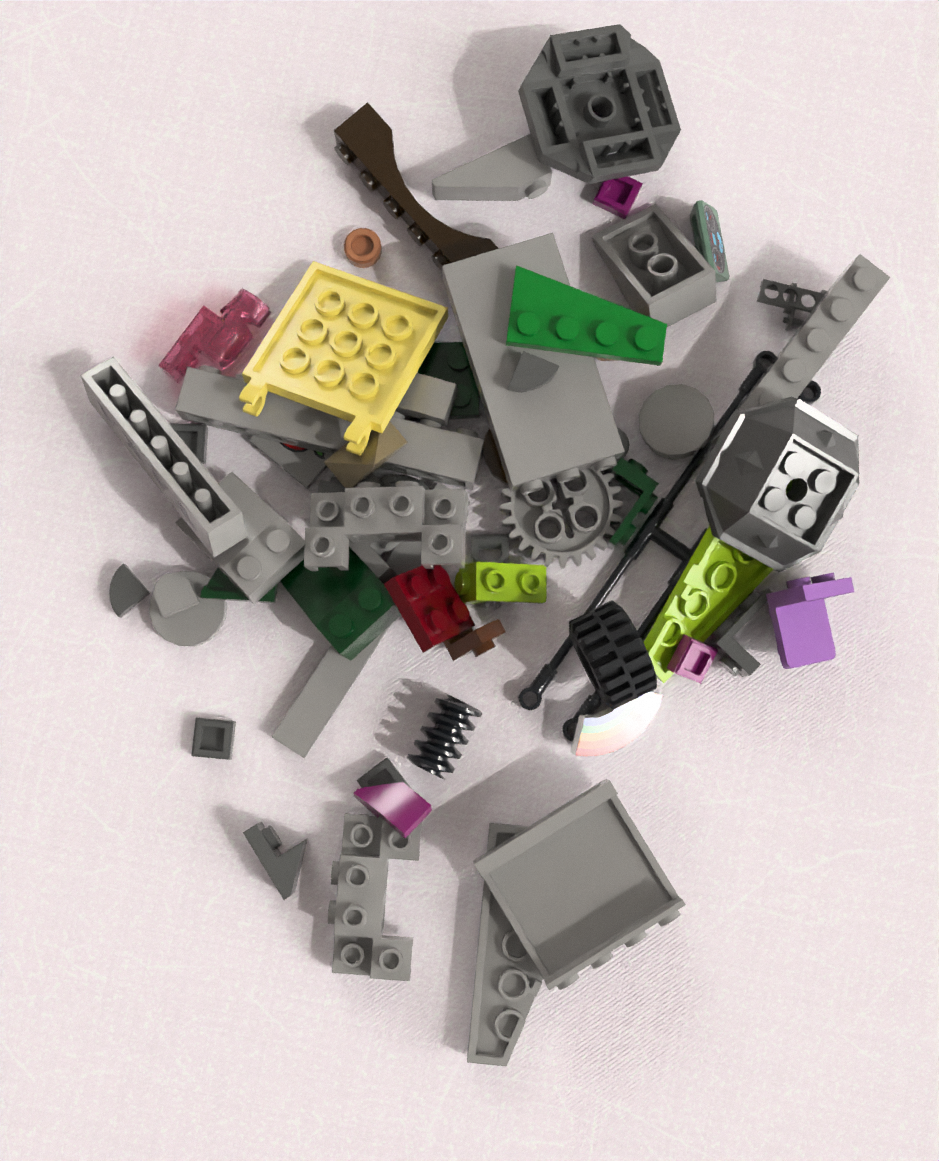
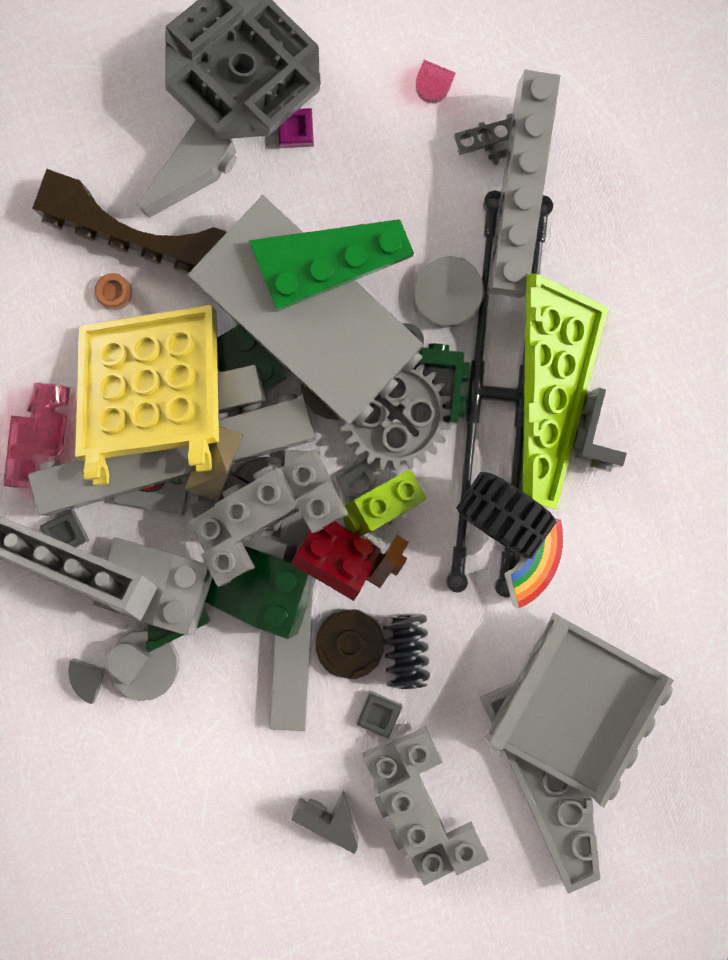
camera: 30 degrees left, 5 degrees up
(213, 738) = (224, 755): dark grey tile -> none
(394, 700) = (350, 643): none -> dark brown tile
(396, 805) = (400, 729): magenta slope -> none
(531, 373) = (312, 323): dark grey tile -> none
(657, 266) = (362, 172): light grey slope -> none
(692, 659) = (568, 477): magenta tile -> none
(709, 239) = (393, 128): sand green slope -> none
(749, 475) = (537, 291): dark grey piece -> none
(770, 223) = (433, 82): none -> clear pink tile
(802, 619) = (640, 397): medium lavender bracket -> none

